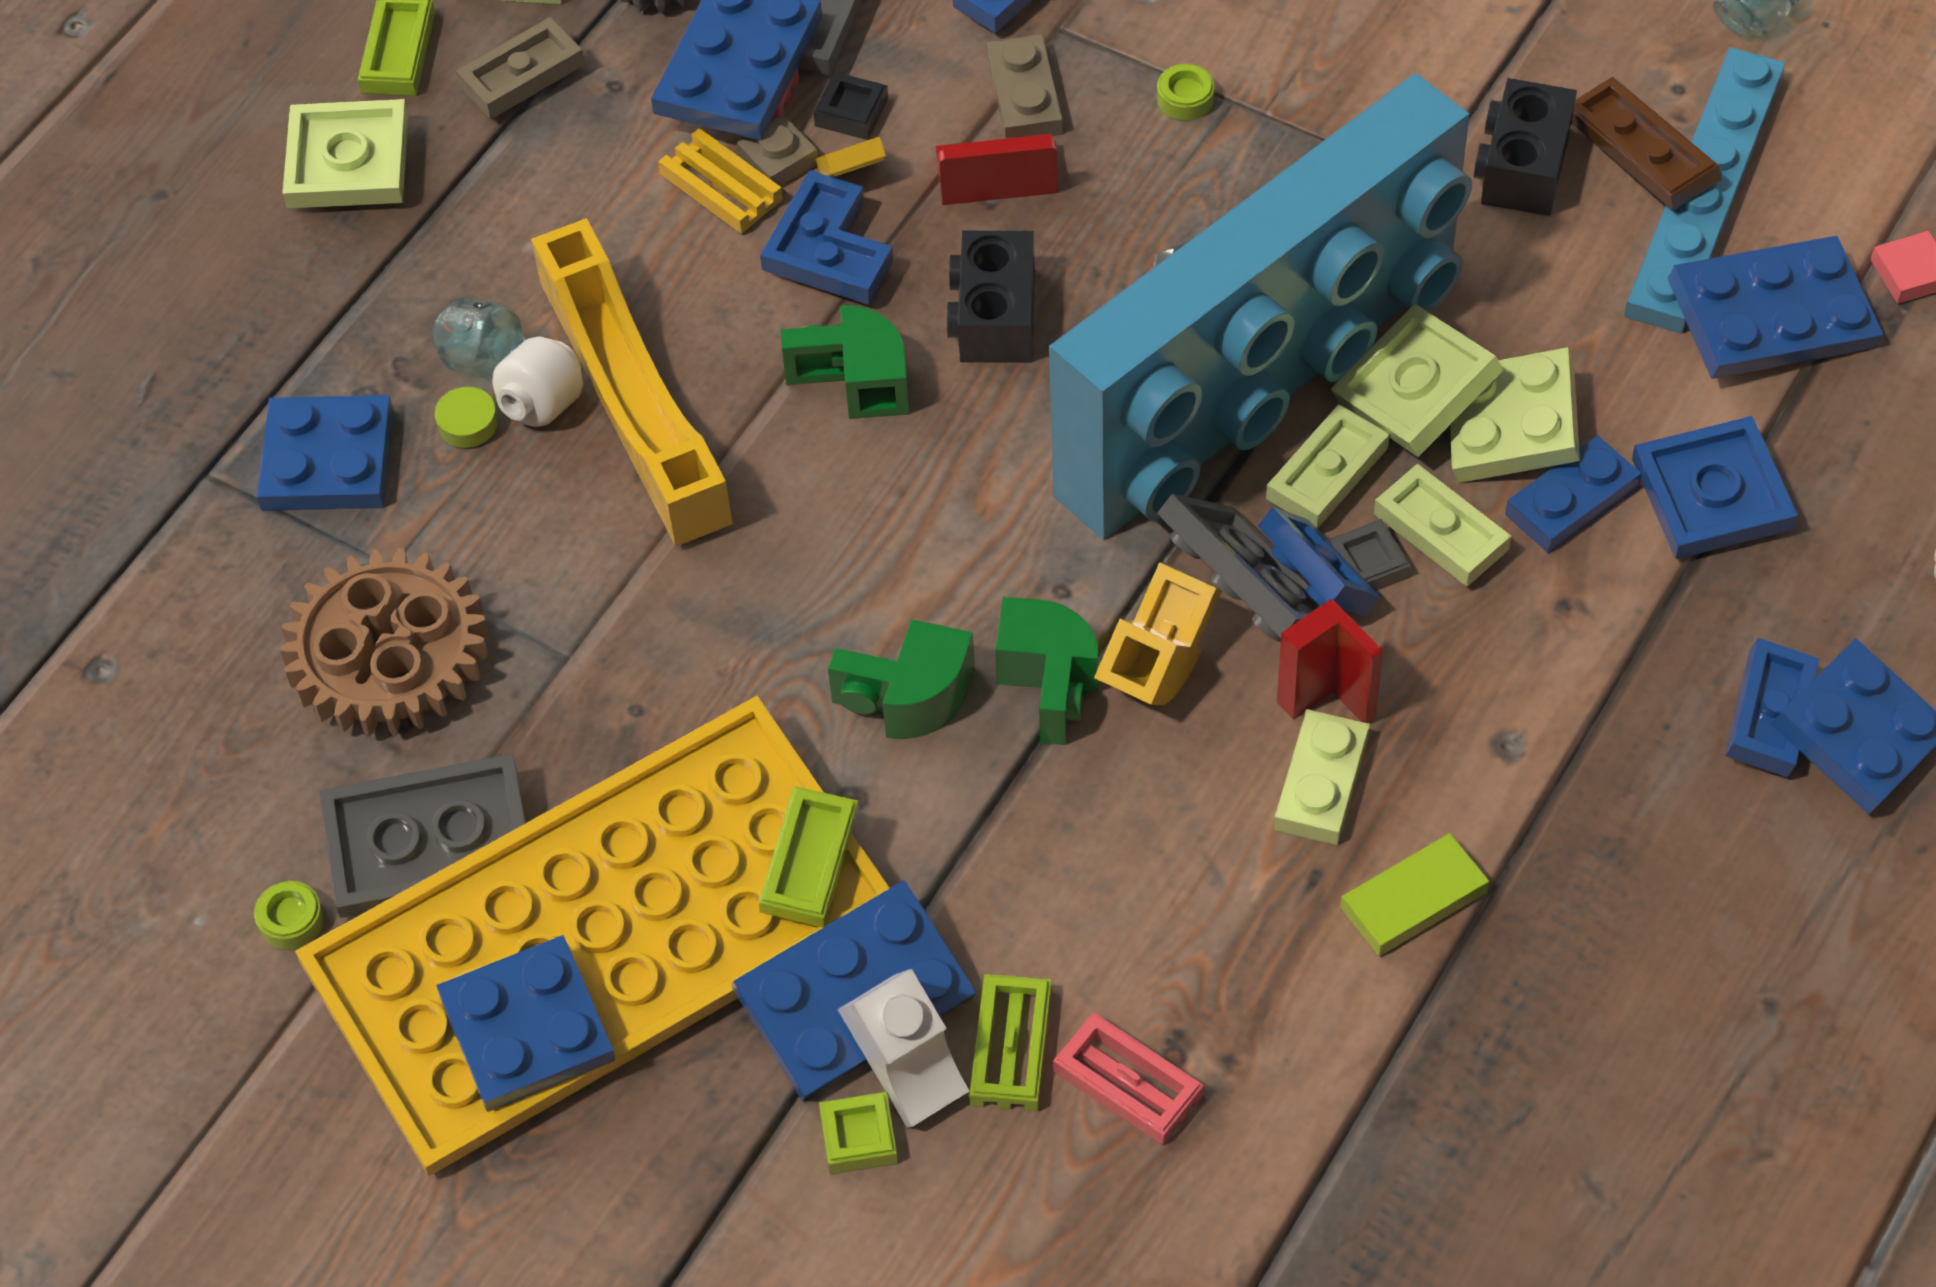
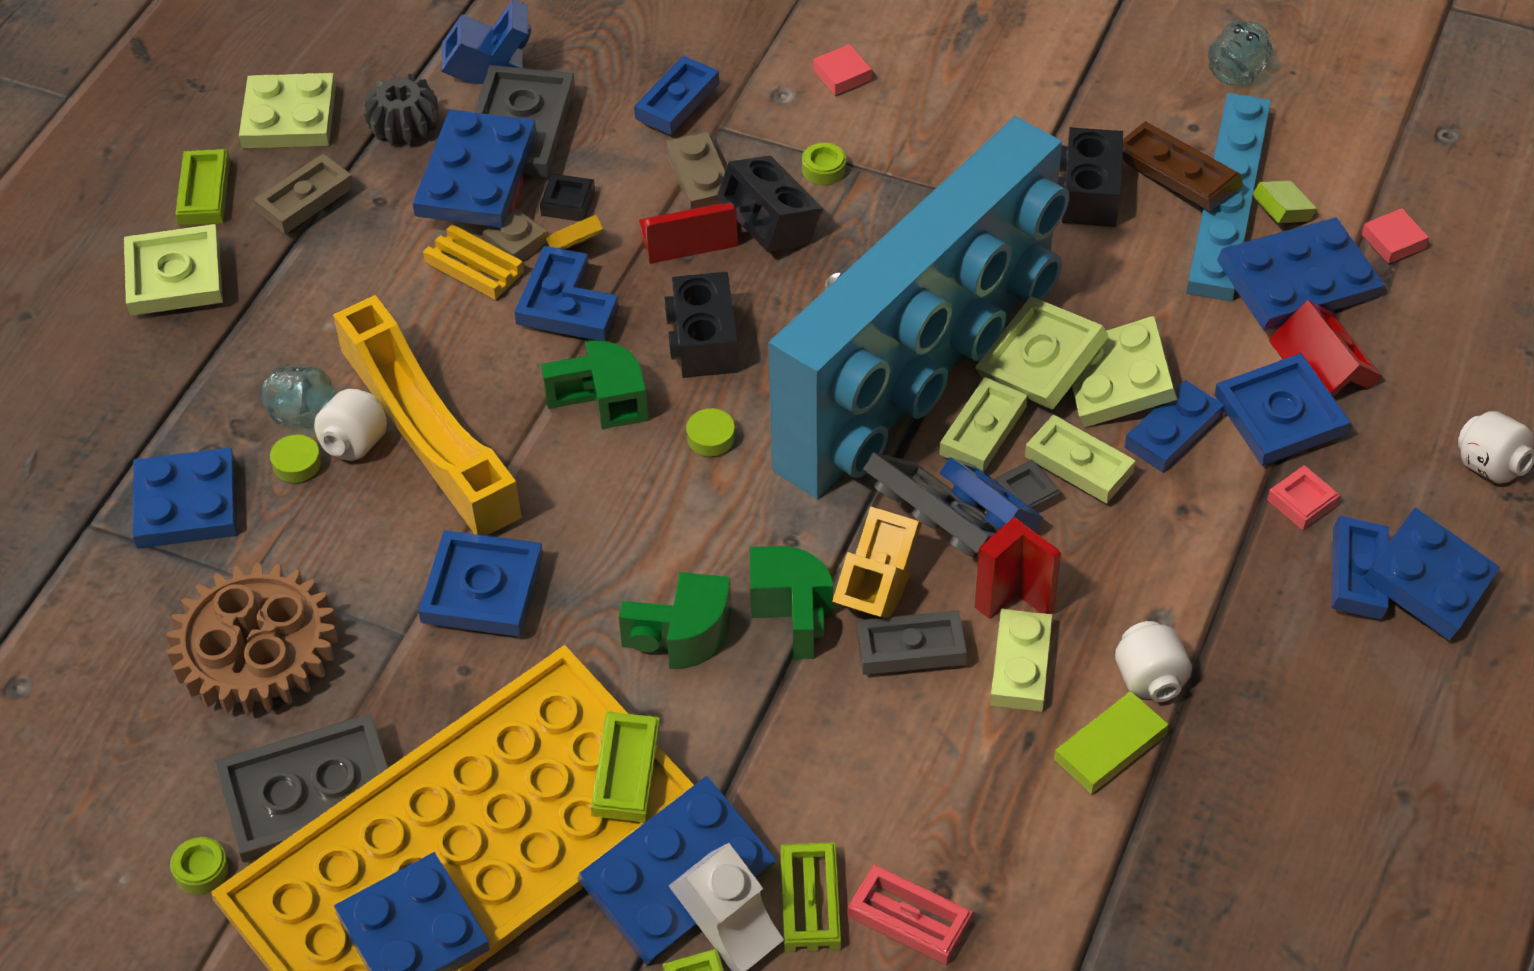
camera: 10 degrees left, 5 degrees down
(670, 603) = (481, 583): none -> blue plate
(983, 438) = (710, 432): none -> lime tile
(1103, 141) = (769, 203): none -> black brick
(1187, 739) = (911, 642): none -> dark grey plate
(1484, 799) = (1153, 661): none -> white head
(1720, 607) = (1303, 497): none -> coral tile
(1775, 206) = (1284, 201): none -> lime tile
(1788, 412) = (1325, 347): none -> red panel

